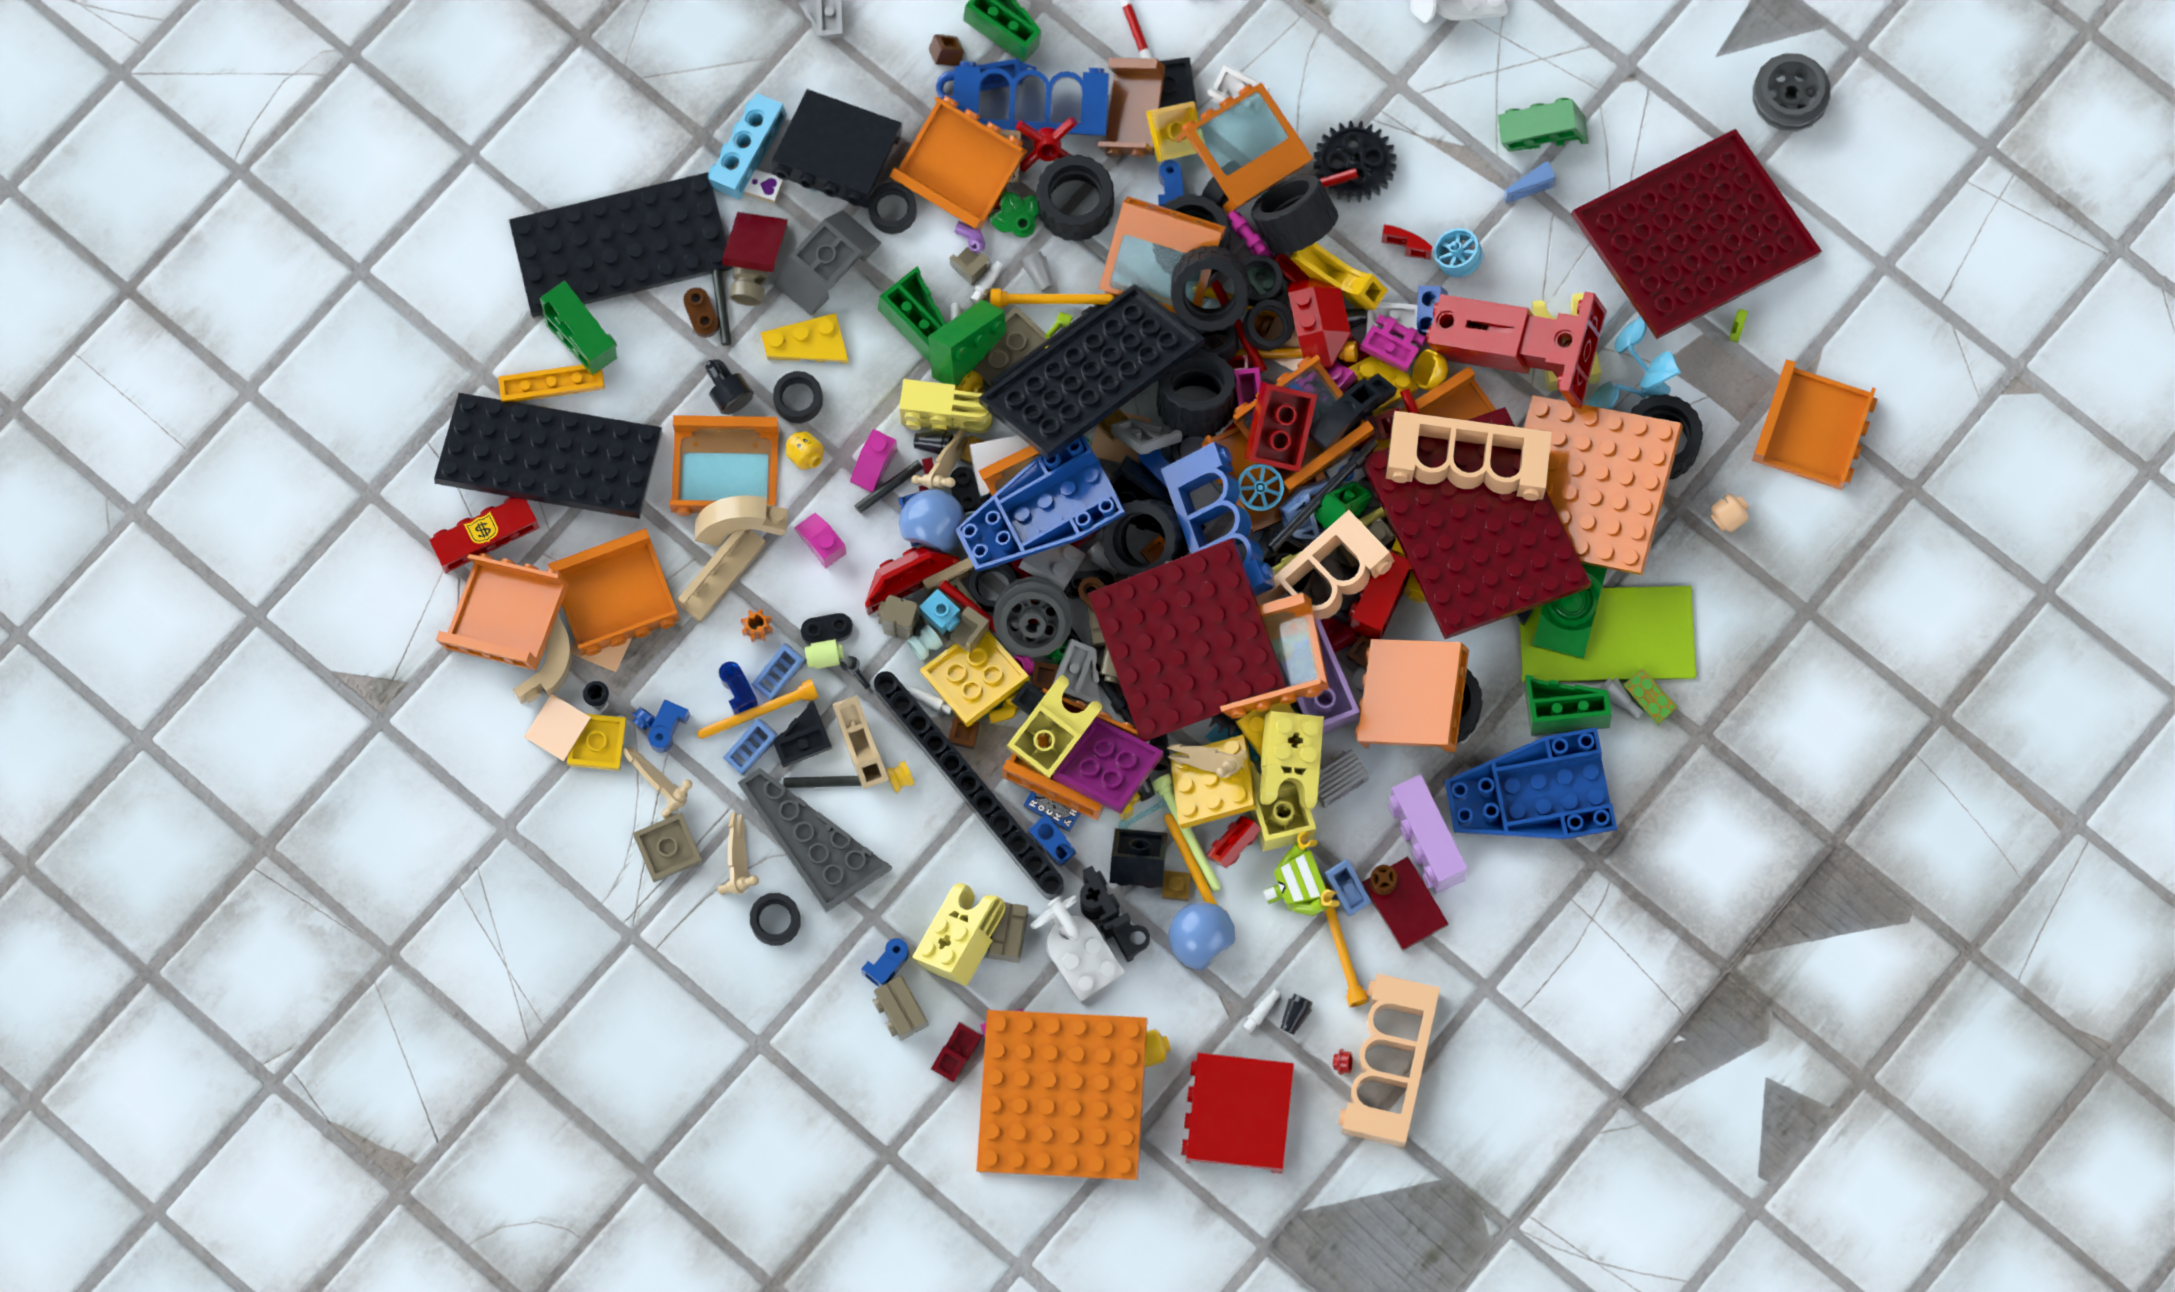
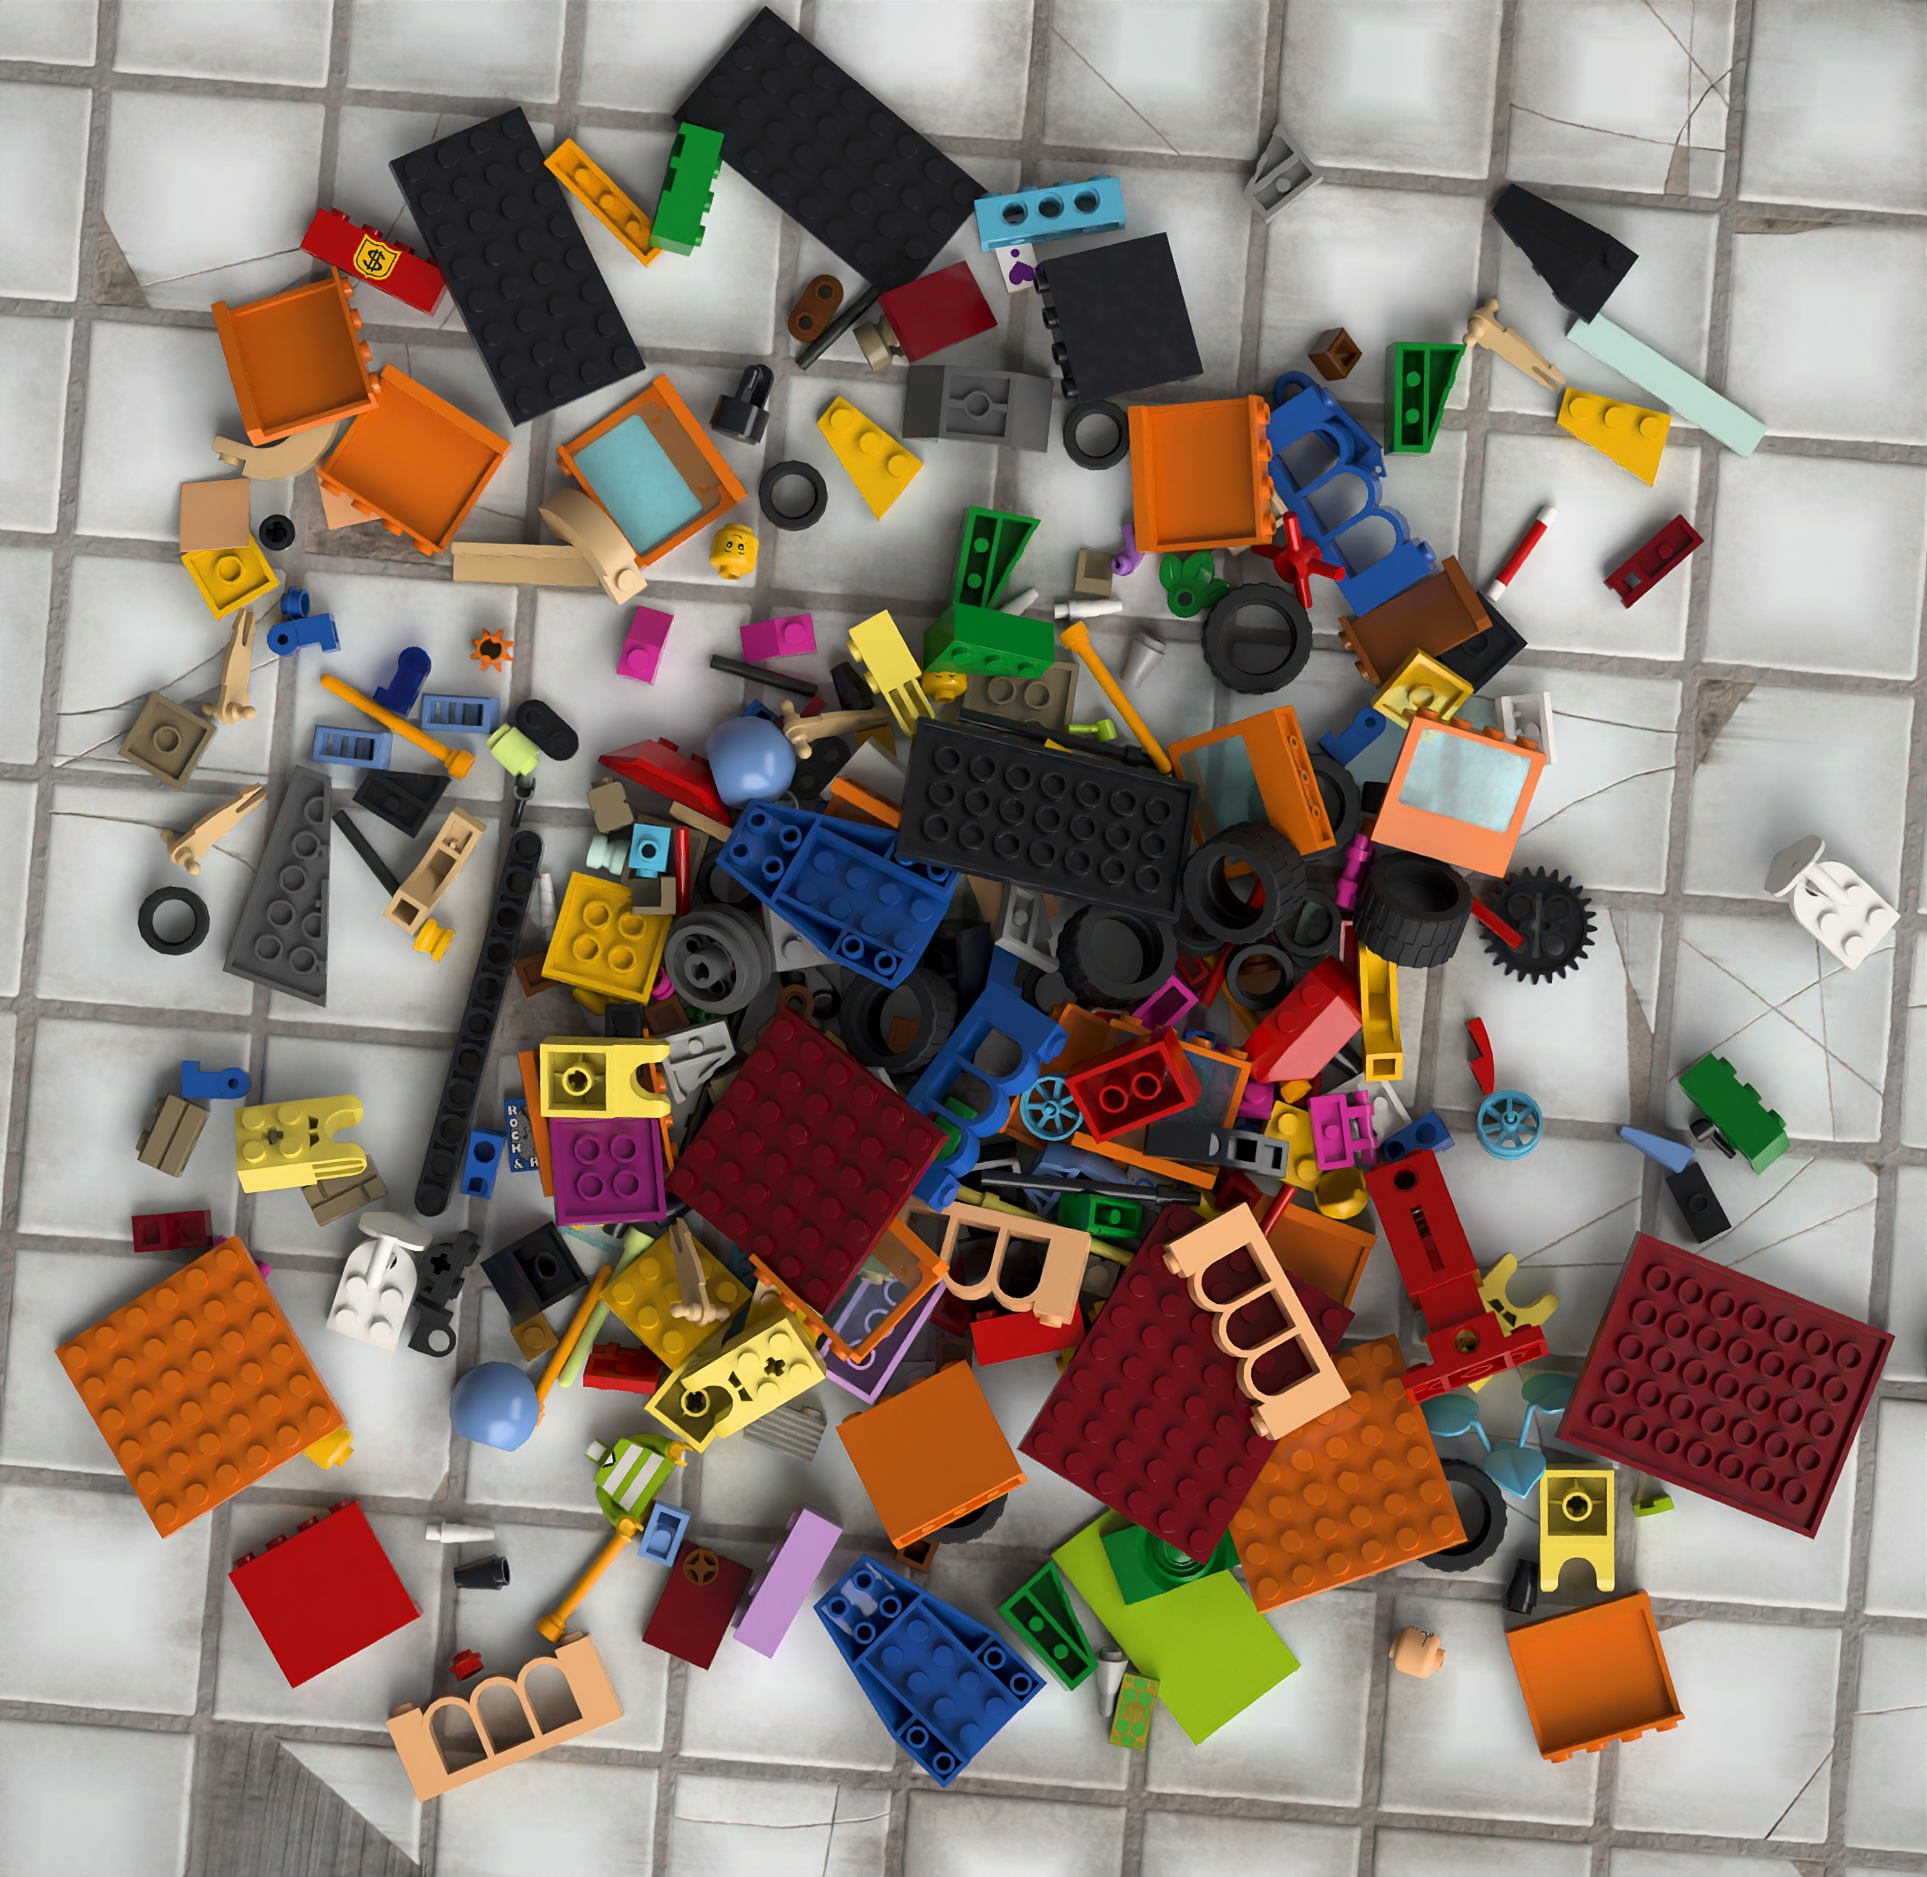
camera: 55 degrees right, 15 degrees up
(1466, 754) = (917, 1554): none -> reddish brown slope
(1540, 151) = (1704, 1129): none -> black hand
(1579, 184) = (1698, 1203): none -> black plate
(1726, 371) = (1580, 1532): none -> light yellow brick
(1735, 431) = (1521, 1588): none -> black cone

